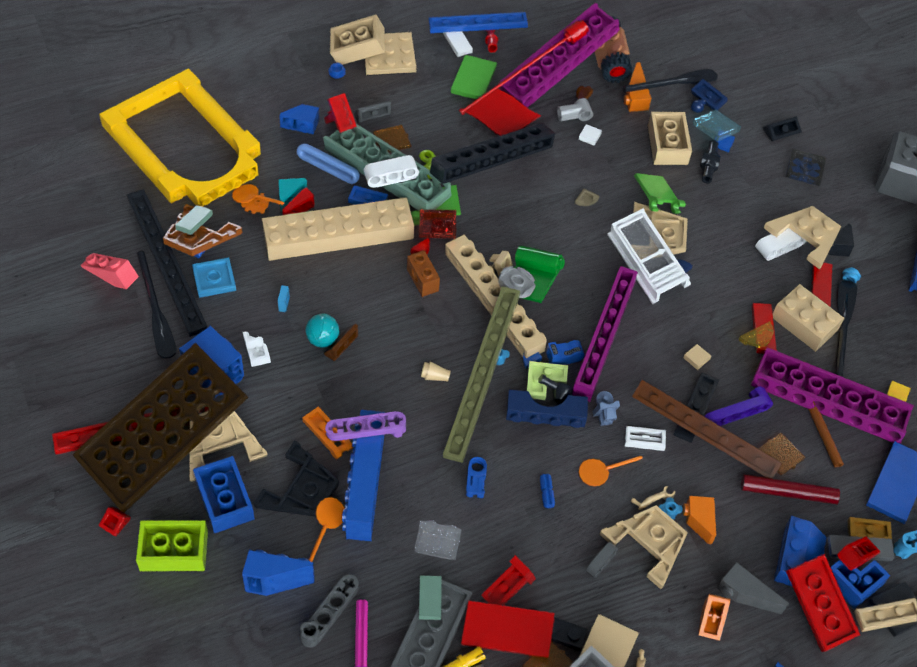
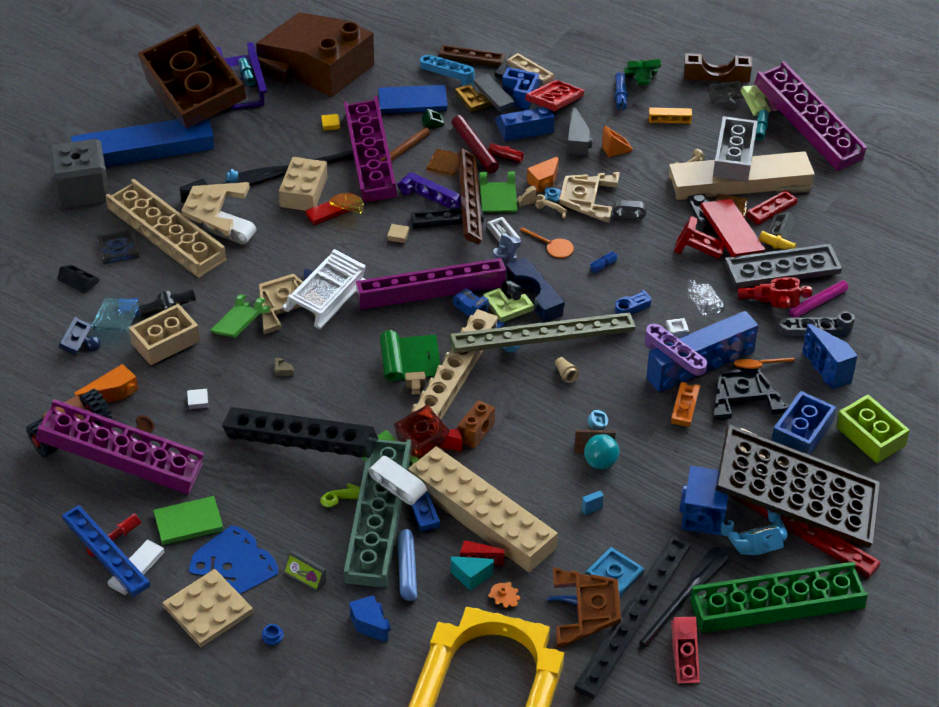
camera: 120 degrees left, 10 degrees down
(89, 358) = (777, 600): none -> green tile
(114, 520) = (889, 486): red slope -> none
(144, 369) = (759, 539): none -> dark azure torso
(194, 220) = (578, 608): tile -> none
(248, 193) = (500, 603): orange piece -> none
(256, 350) = (658, 494): white slope -> none
(340, 113) = (348, 575): red bracket -> none
(357, 40) = (226, 622): tan brick -> none
(363, 359) = (597, 420): none -> medium azure tile
(394, 136) = (327, 541): clear orange piece -> none
(398, 595) = (781, 292): none -> red piece
(419, 93) = (244, 558): none -> blue piece
(420, 493) = (677, 327): none -> white tile
(430, 597) = (754, 272): sand green tile -> none
(502, 111) = (223, 470): red flag -> none
(517, 279) = (433, 353): light grey tile -> none
(580, 109) = (173, 416): light grey piece -> none
(679, 485) = (528, 197): none -> tan tile
(687, 78) = (54, 355): black piece -> none
(701, 466) = (498, 196): none -> bright green flag
(761, 510) = (506, 152): none -> red pin
(822, 282) = (258, 192): red tile -> none
(831, 201) = (167, 228): none -> tan tile
(854, 481) = (432, 119): none -> dark green slope
(858, 553) = (506, 83): red slope -> none

